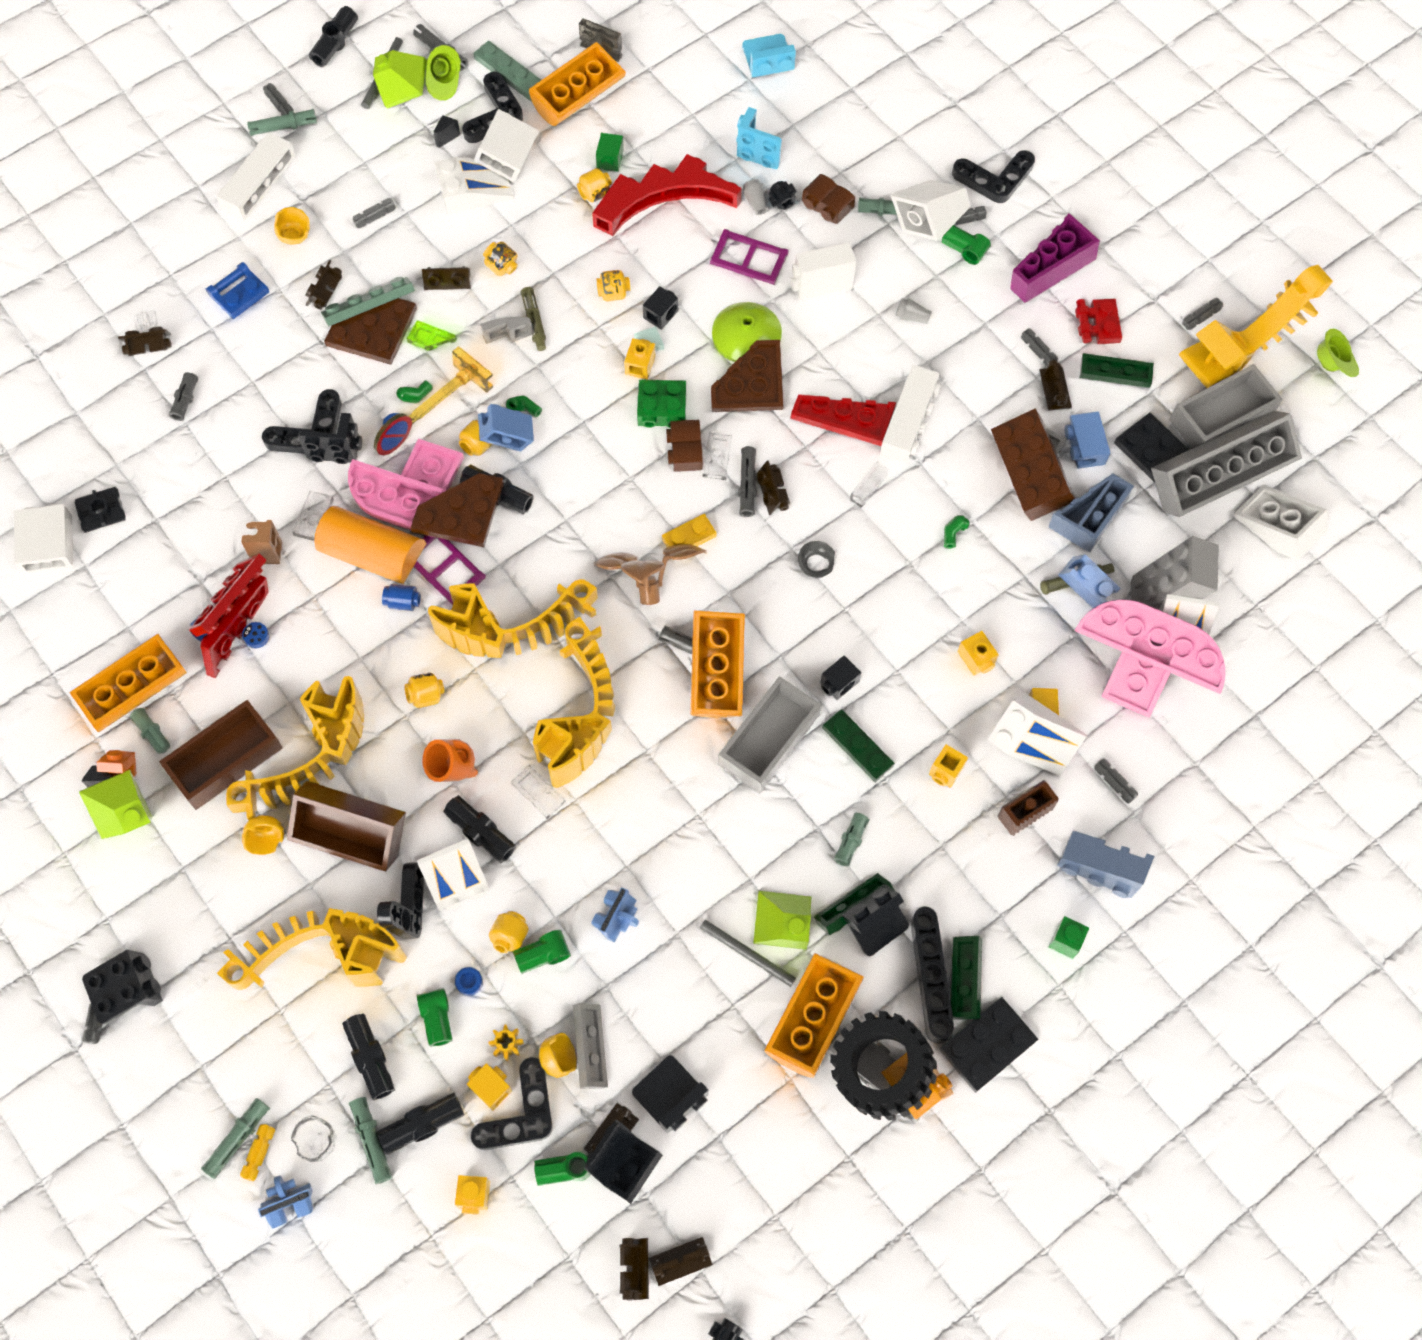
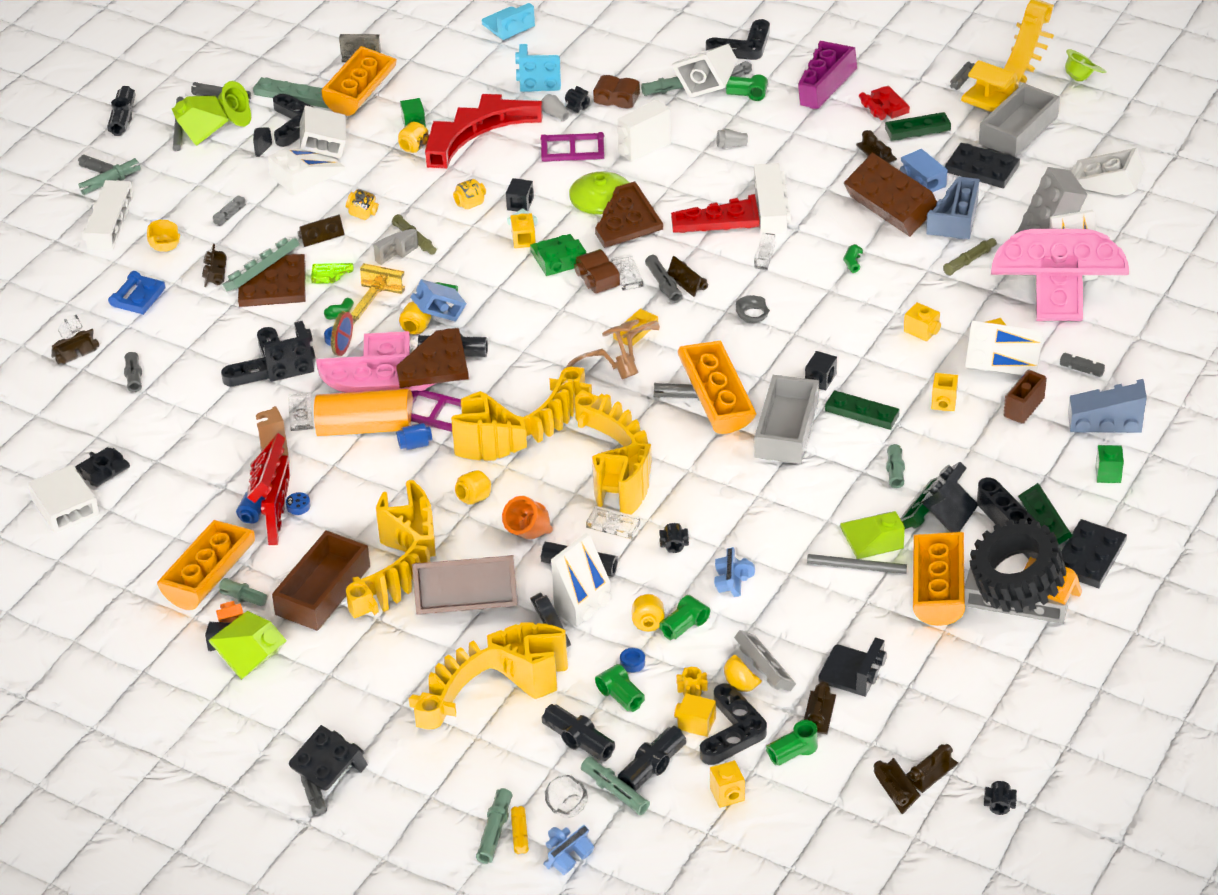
camera: 20 degrees left, 25 degrees down
(262, 835) = (391, 620): yellow hair -> none
(581, 844) = (674, 537): none -> black gear
(622, 1161) = (842, 723): black bracket -> none
(1038, 346) = (845, 131): dark grey axle -> none
(1088, 580) = (978, 246): medium blue brick -> none
(1226, 463) = (1041, 147): light grey brick -> none

